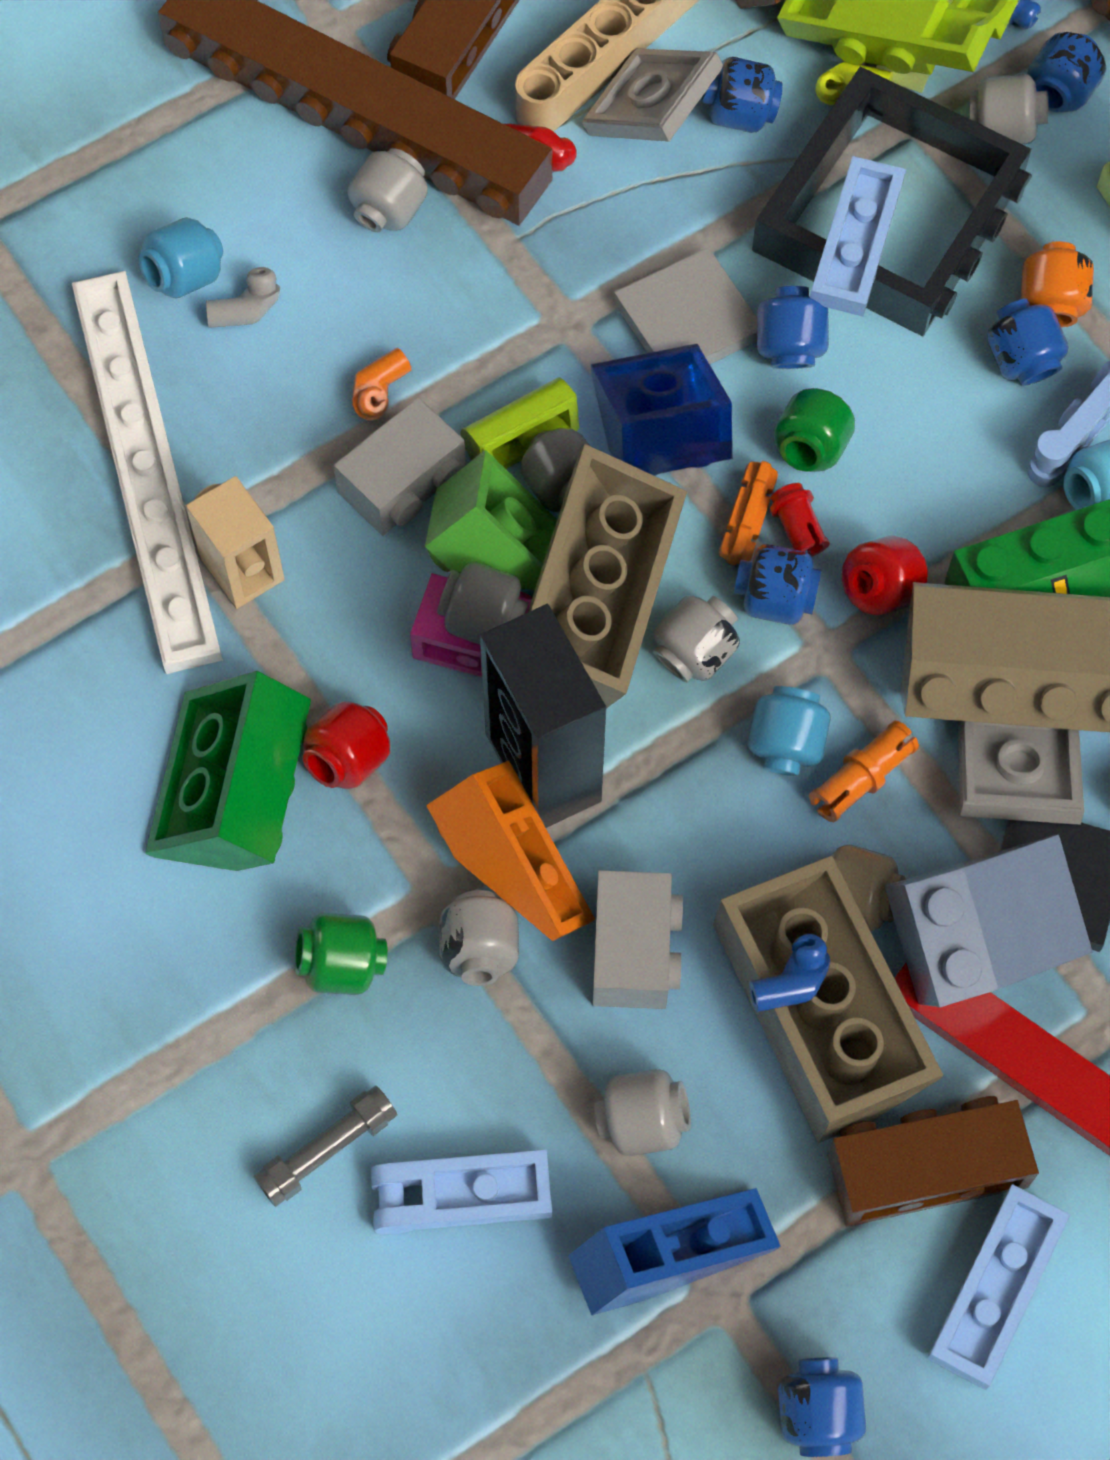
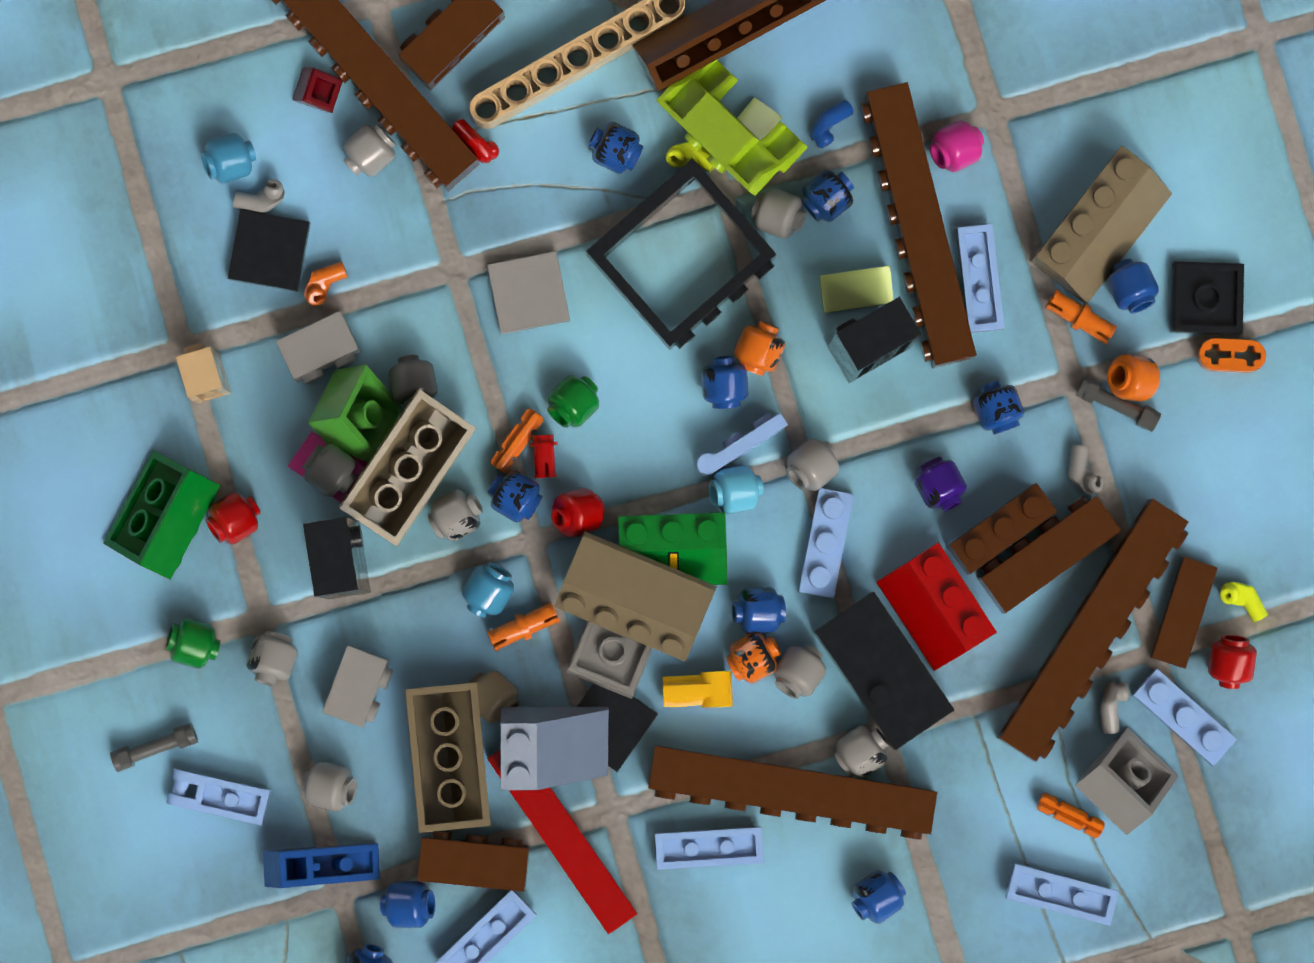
camera: 15 degrees right, 20 degrees up
(146, 474) = (169, 292): white tile -> none
(280, 367) = (269, 250): none -> black tile
(283, 146) = (317, 89): none -> dark red slope
(508, 848) = (303, 618): orange slope -> none
(512, 427) = (399, 341): lime brick -> none
(652, 94) = (557, 132): light grey tile -> none
(664, 410) = (485, 360): clear blue slope -> none
(792, 328) = (583, 330): blue head -> none
(799, 978) = (429, 751): blue arm -> none
(847, 1267) = (408, 904): none -> blue head
(857, 236) = (639, 288): light blue plate -> none

